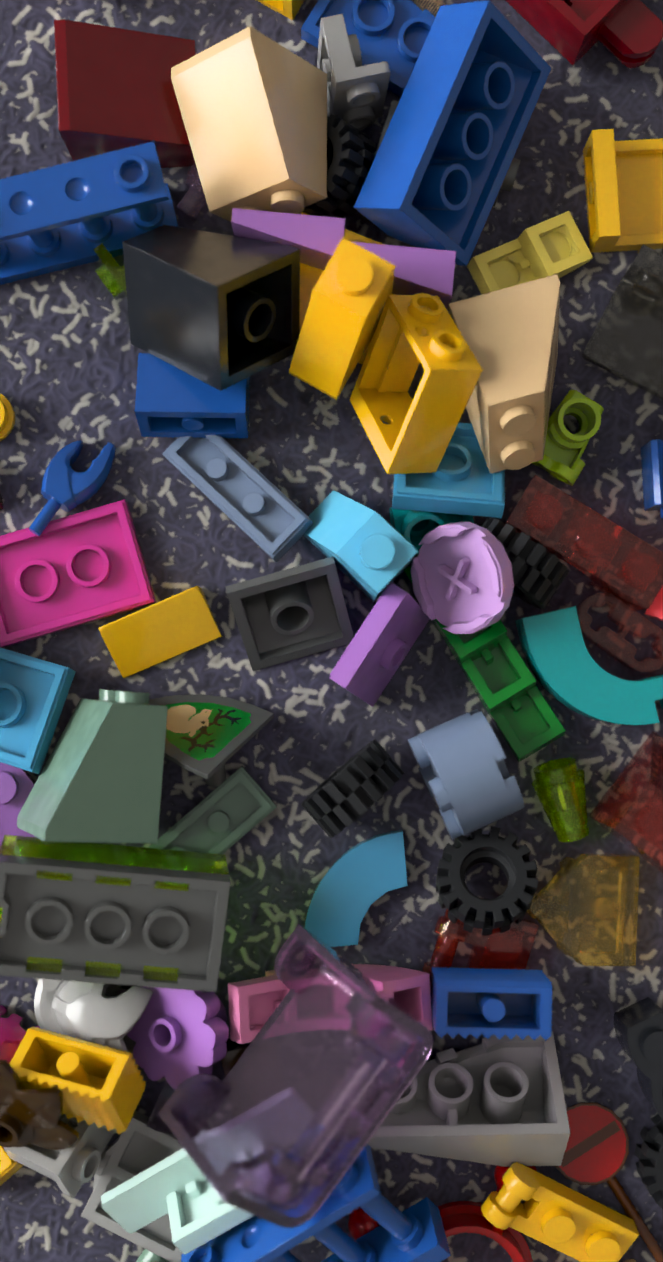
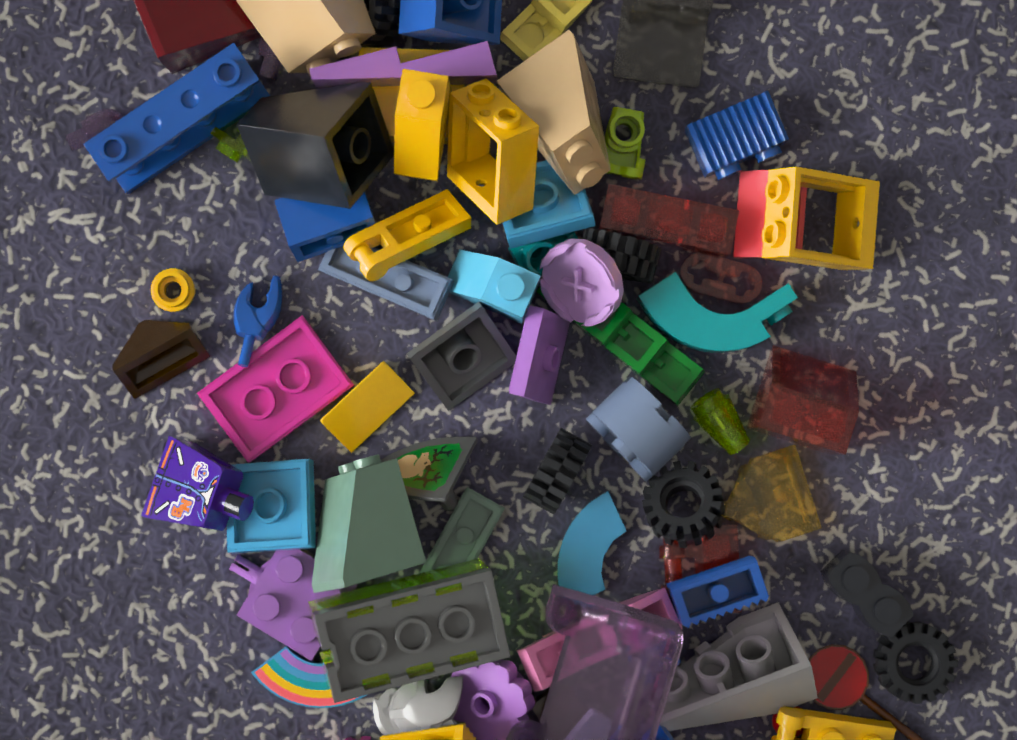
camera: 15 degrees left, 0 degrees up
(278, 449) = (407, 234): none -> yellow plate

